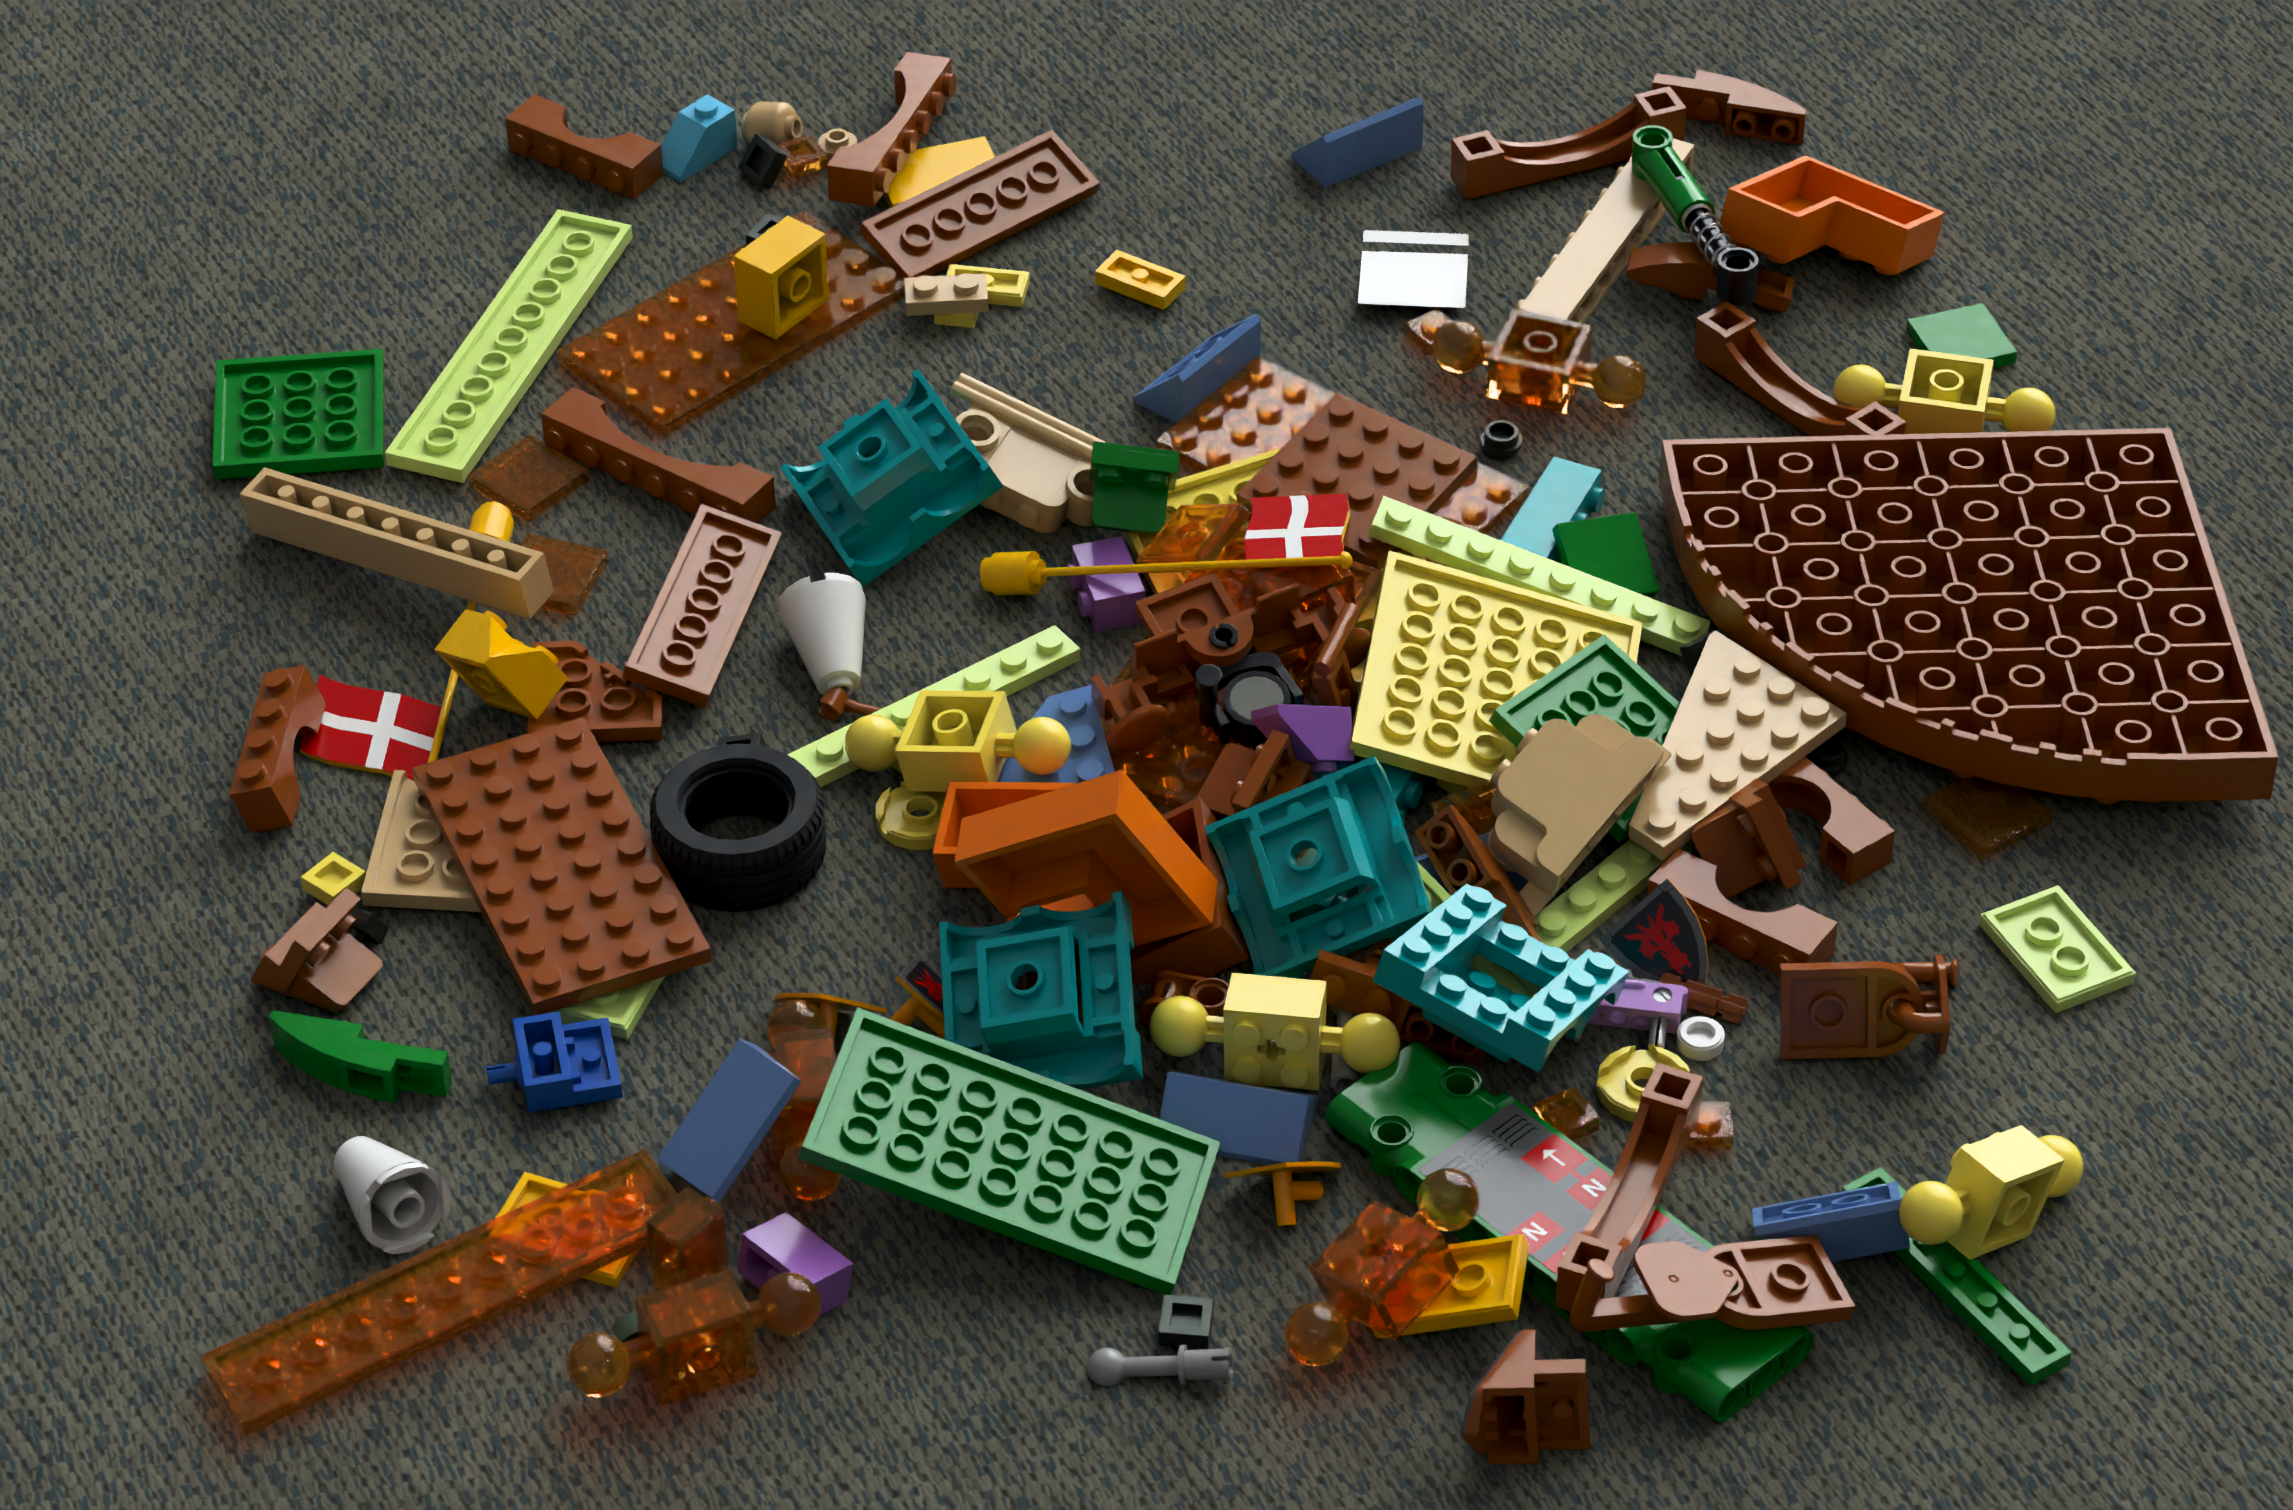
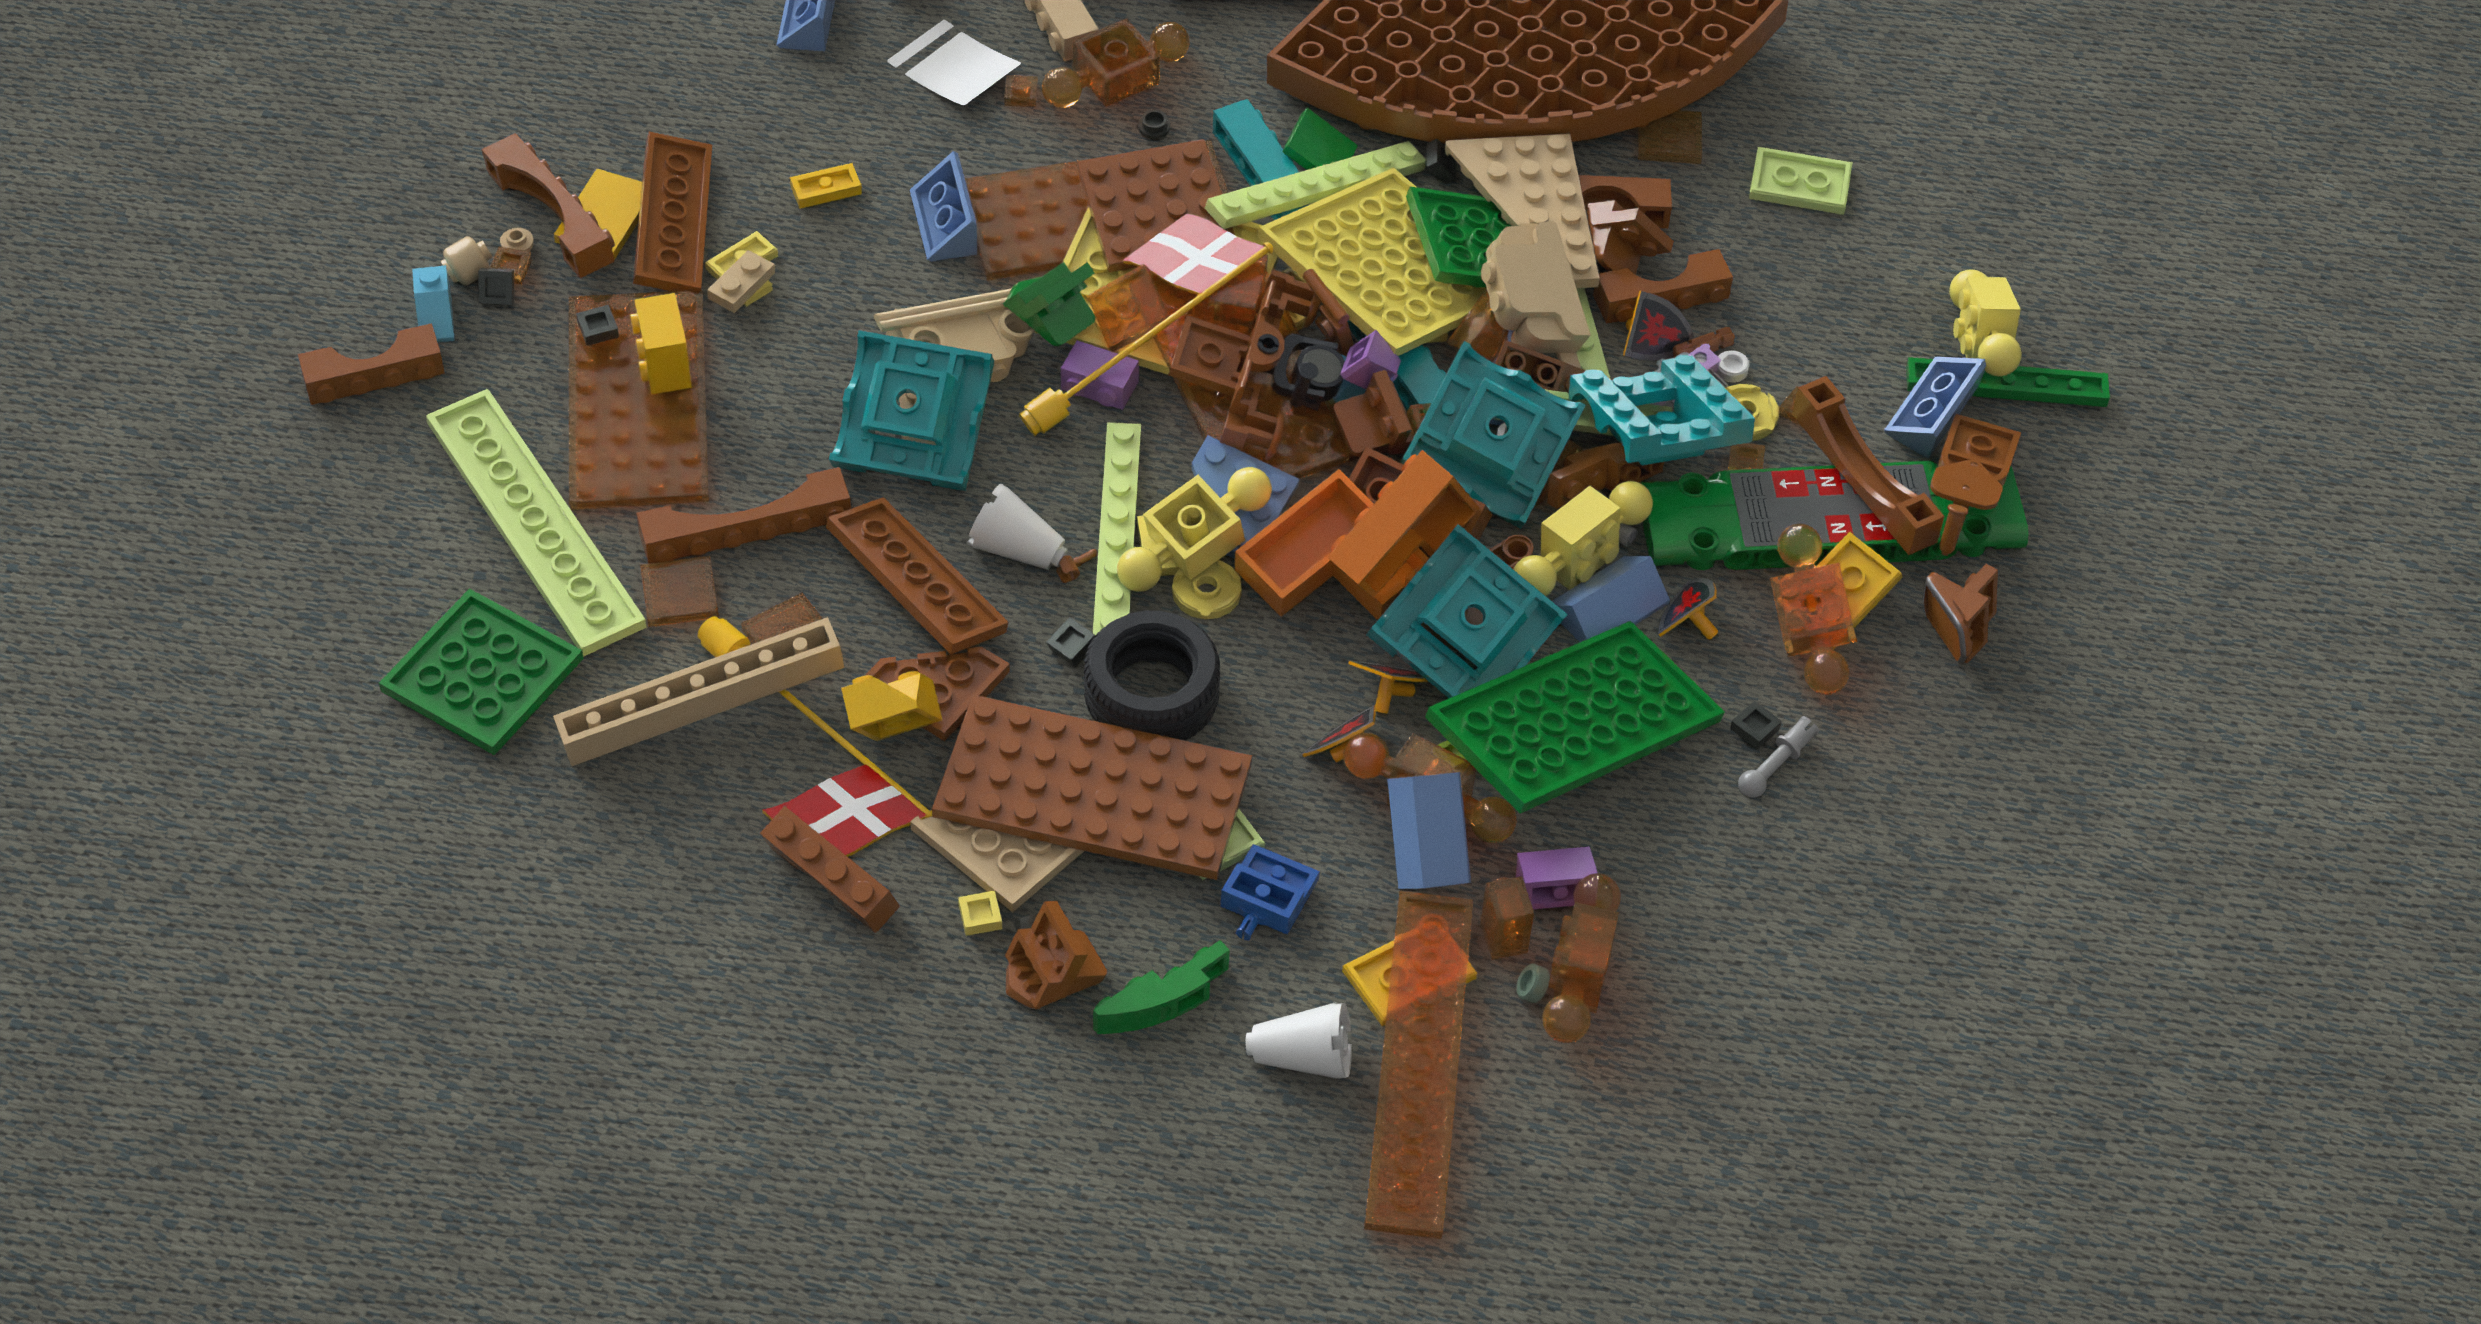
camera: 55 degrees left, 10 degrees up
(1863, 1007) = (1797, 275): dark orange plate -> none

